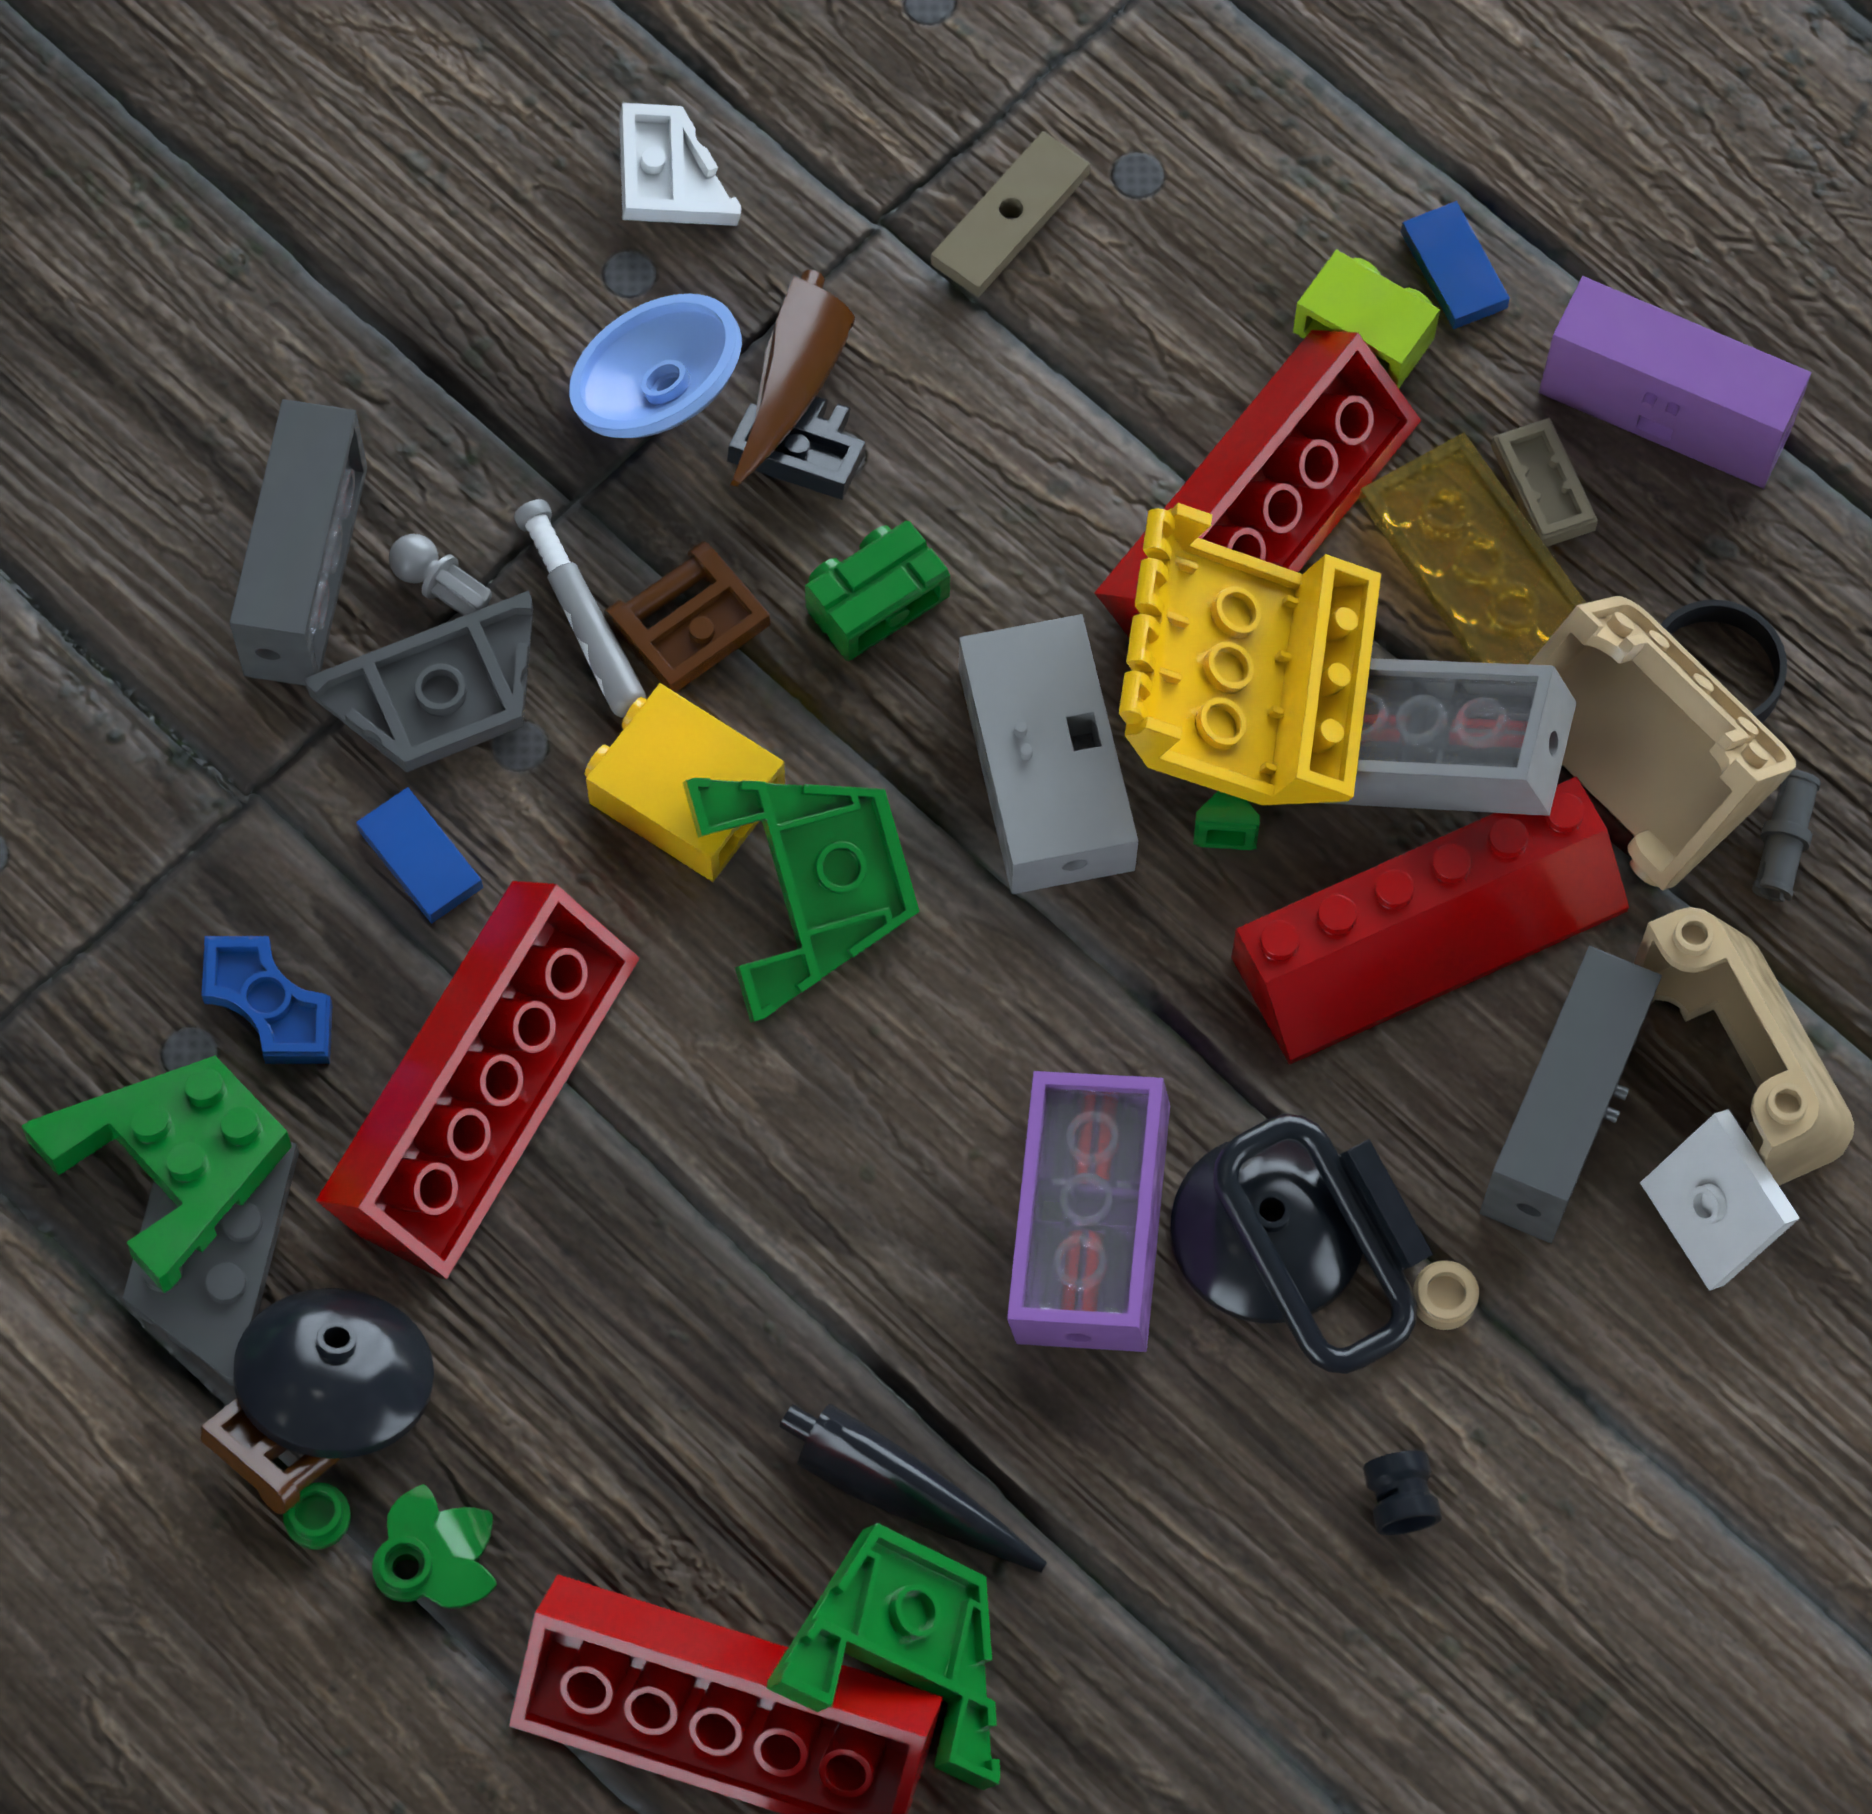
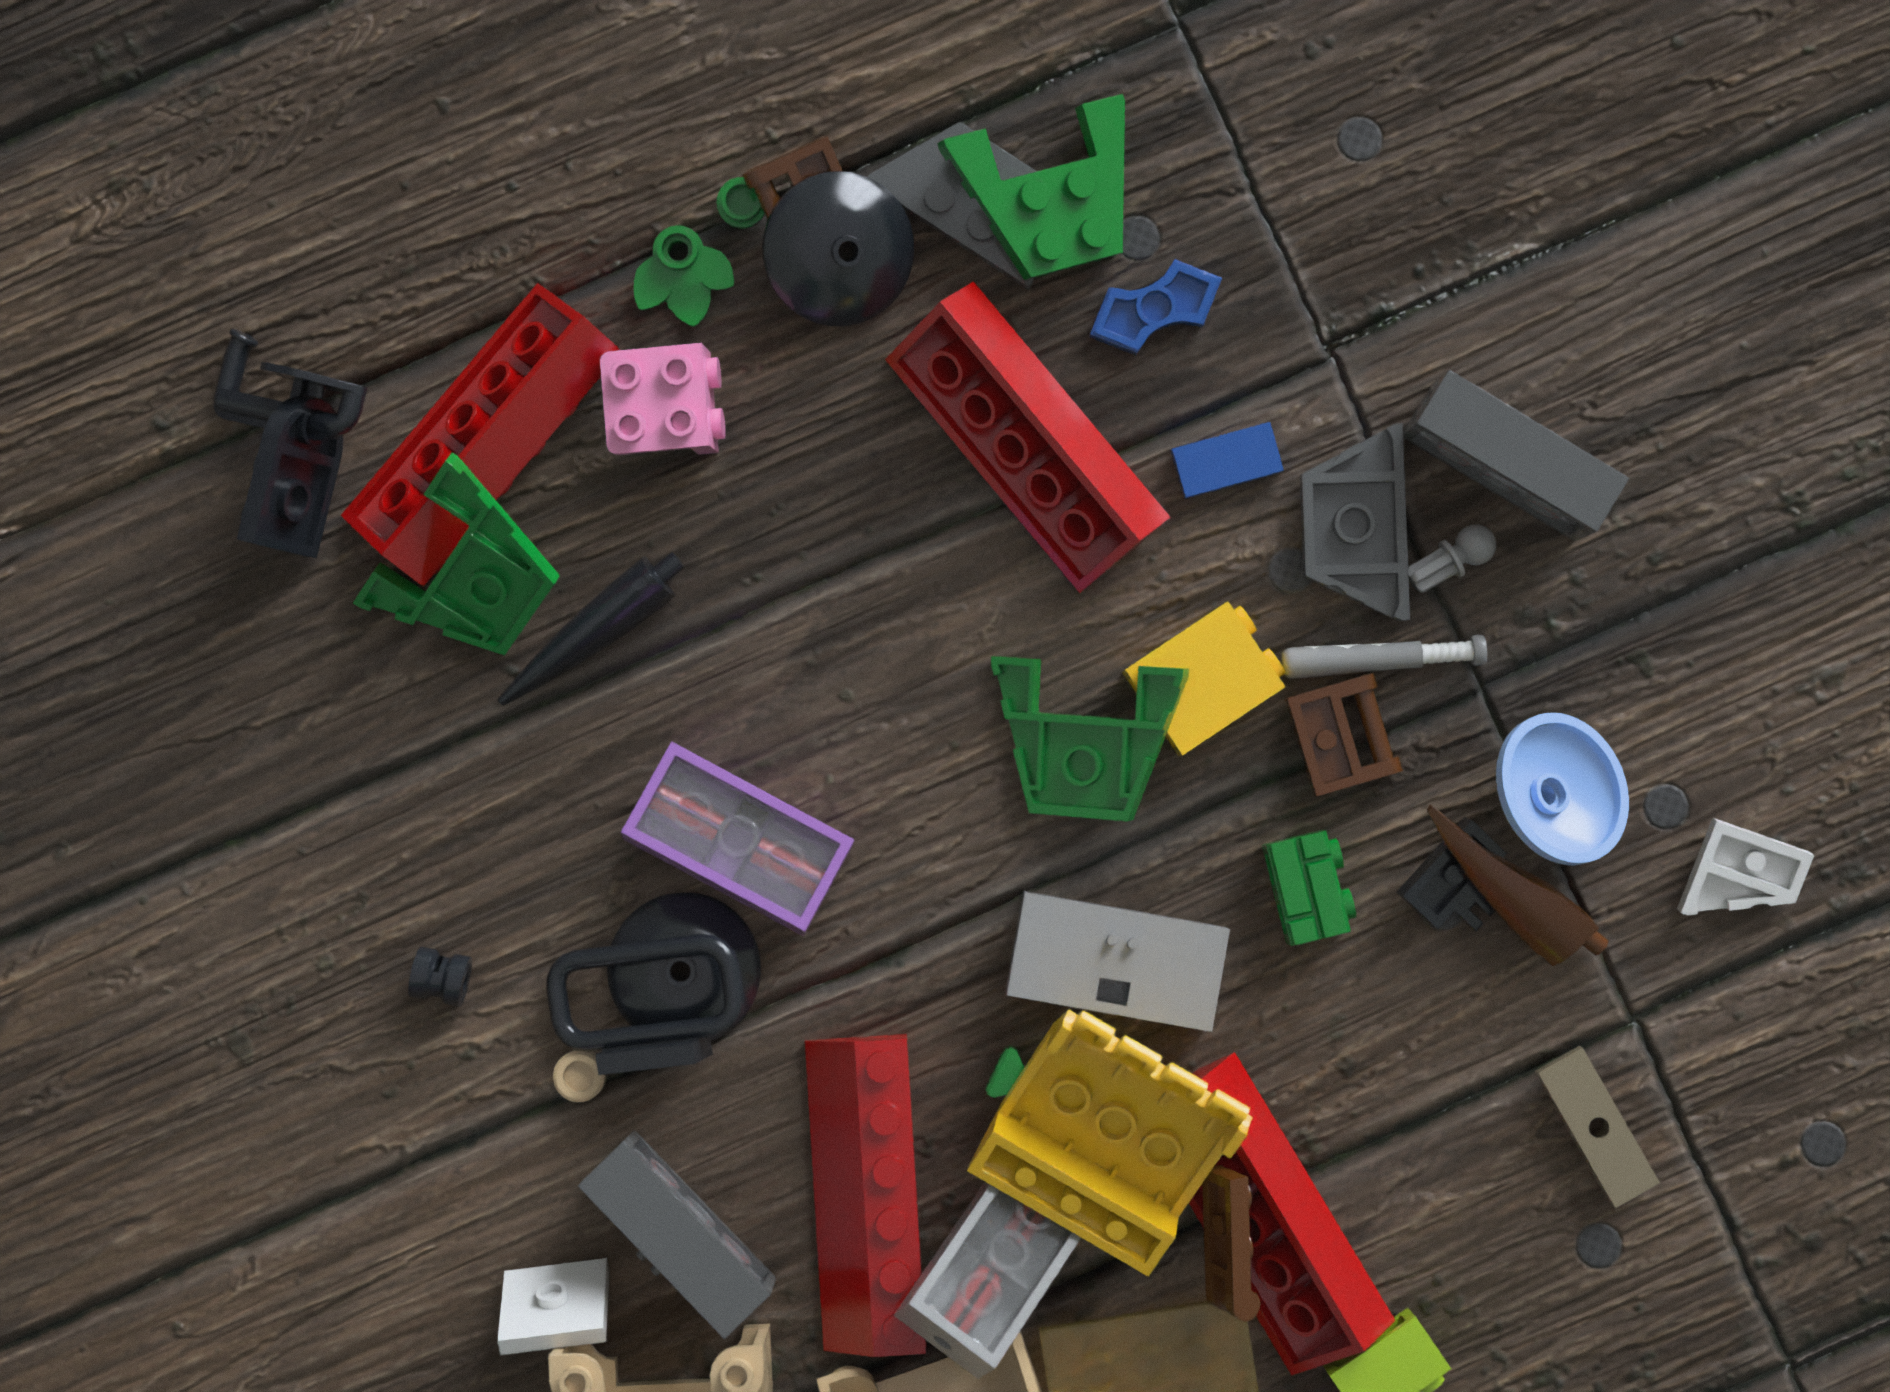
camera: 110 degrees right, 20 degrees up
(601, 1500) = (661, 399): none -> bright pink bracket
(1308, 510) = (1228, 1243): none -> reddish brown plate

